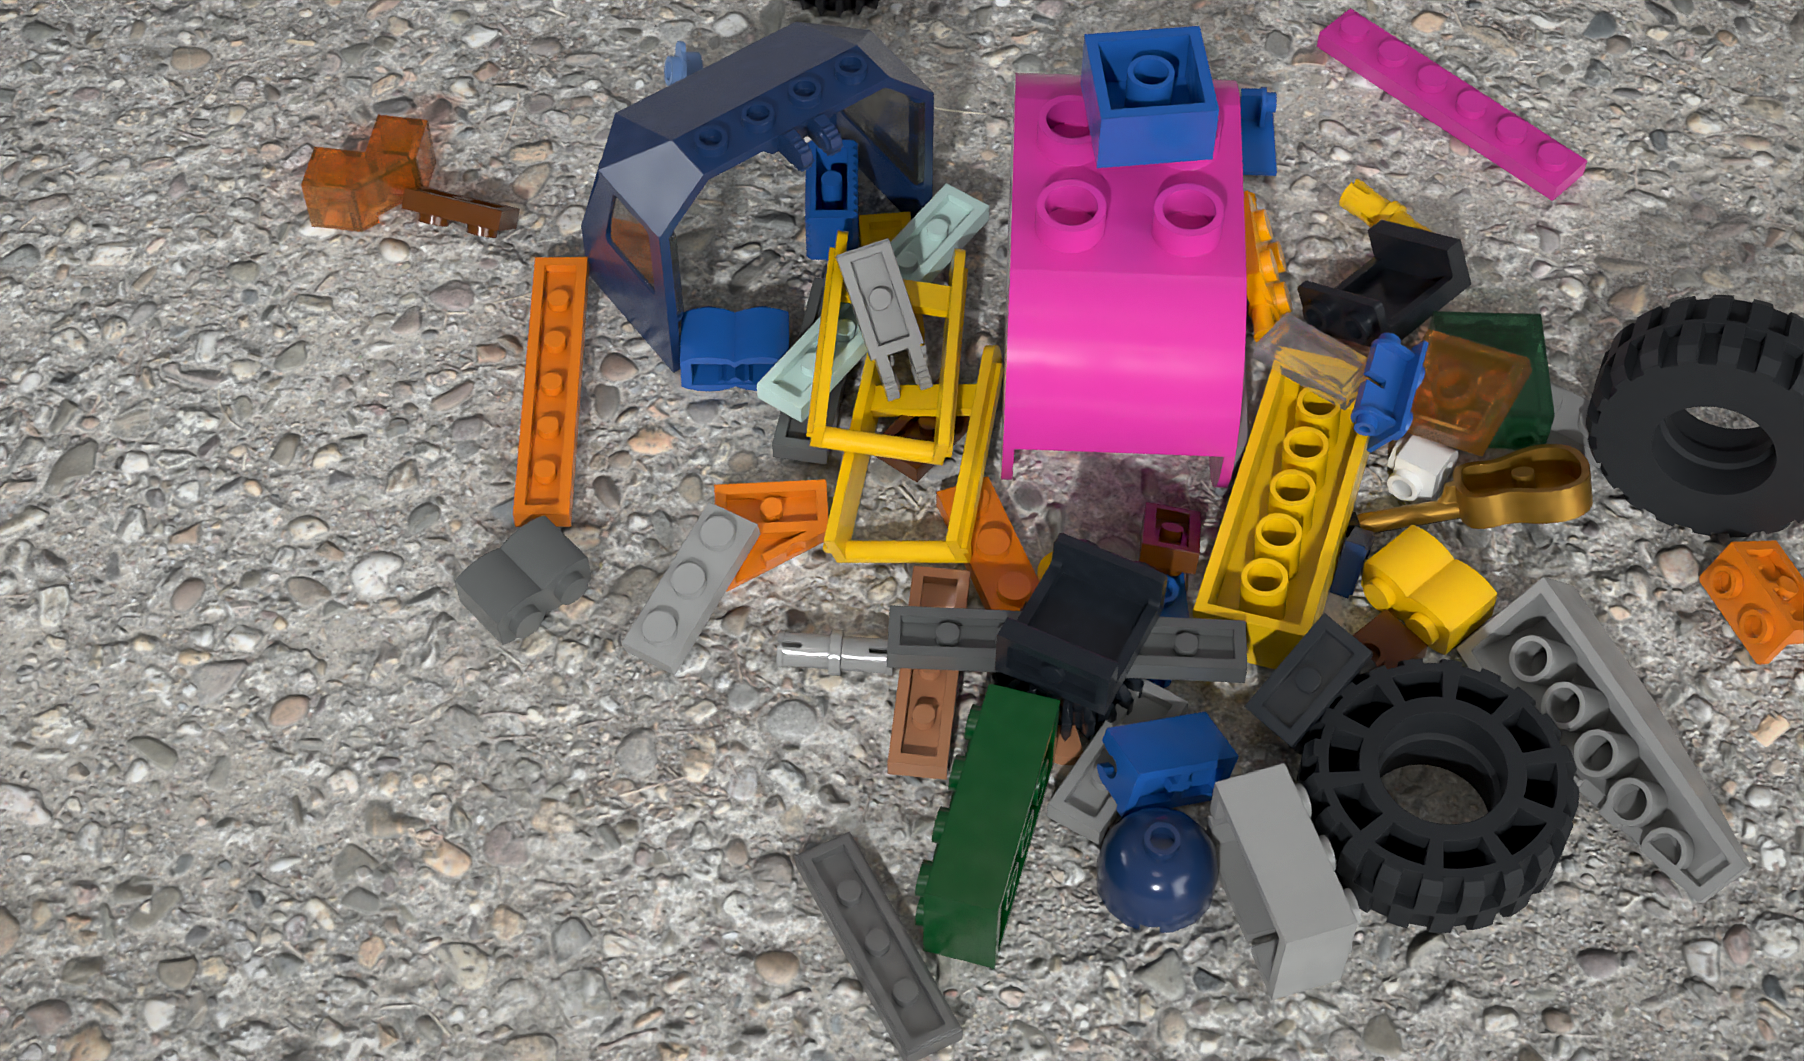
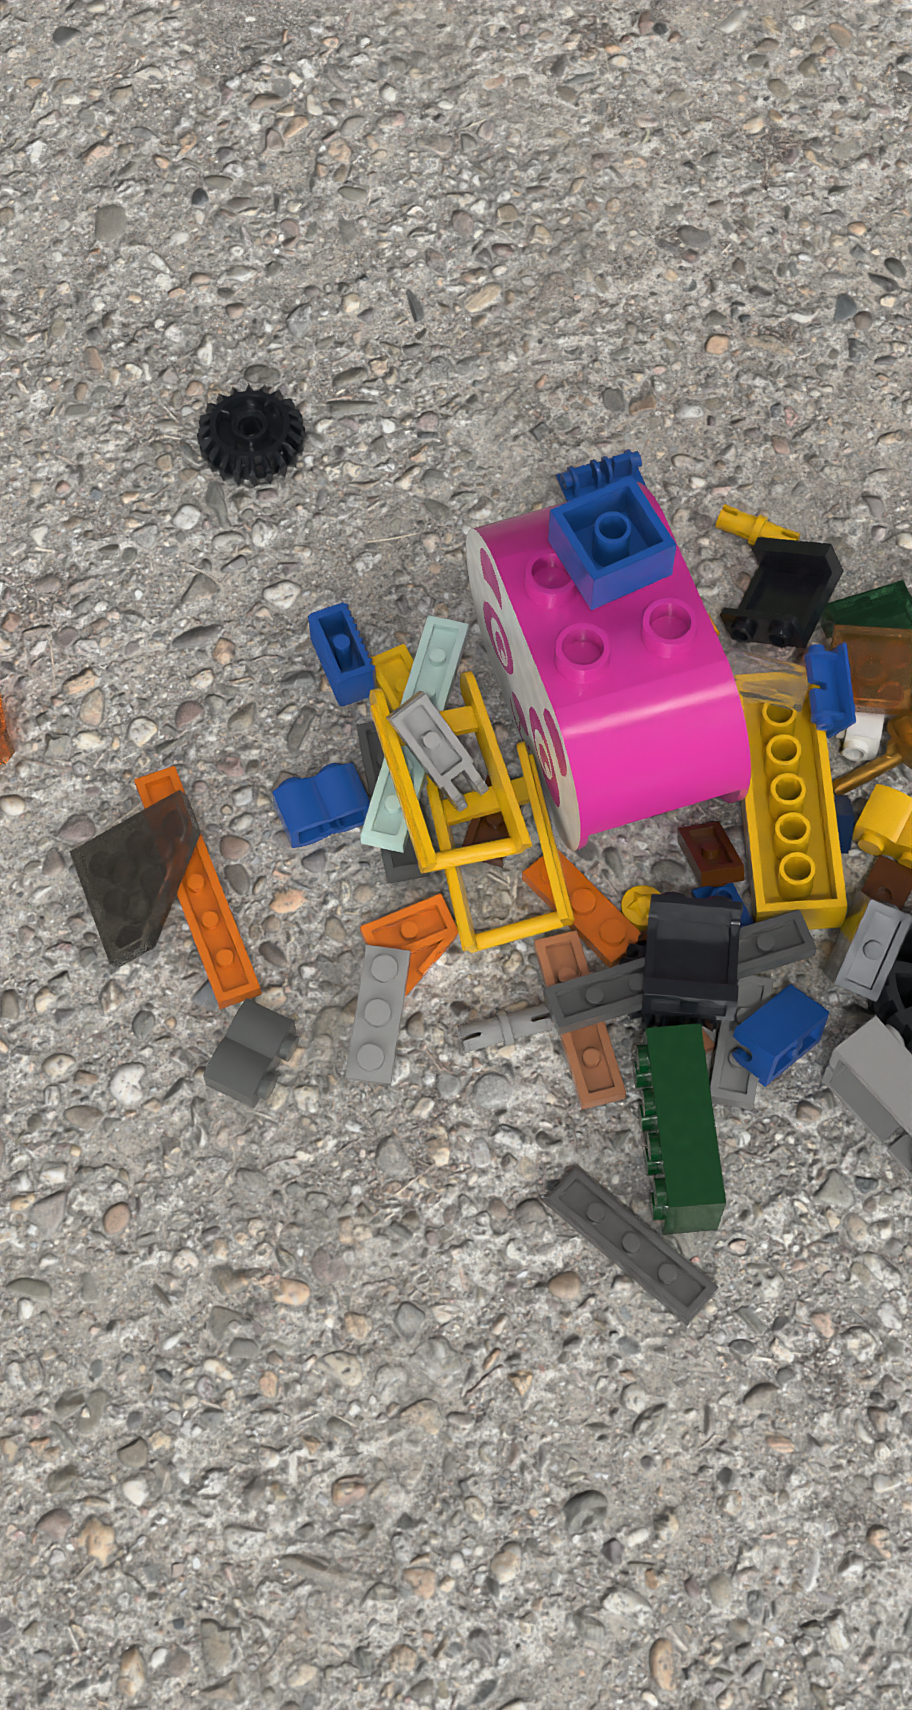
camera: 20 degrees left, 10 degrees up
(440, 207) = (38, 757): reddish brown plate -> none
(485, 350) = (135, 875): none -> clear smoke plate
(681, 64) = (173, 575): medium blue plate -> none
(757, 100) = (265, 650): dark blue windscreen -> none
(1157, 870) = (801, 1115): dark blue cylinder -> none
(1452, 104) = (762, 413): dark pink plate -> none

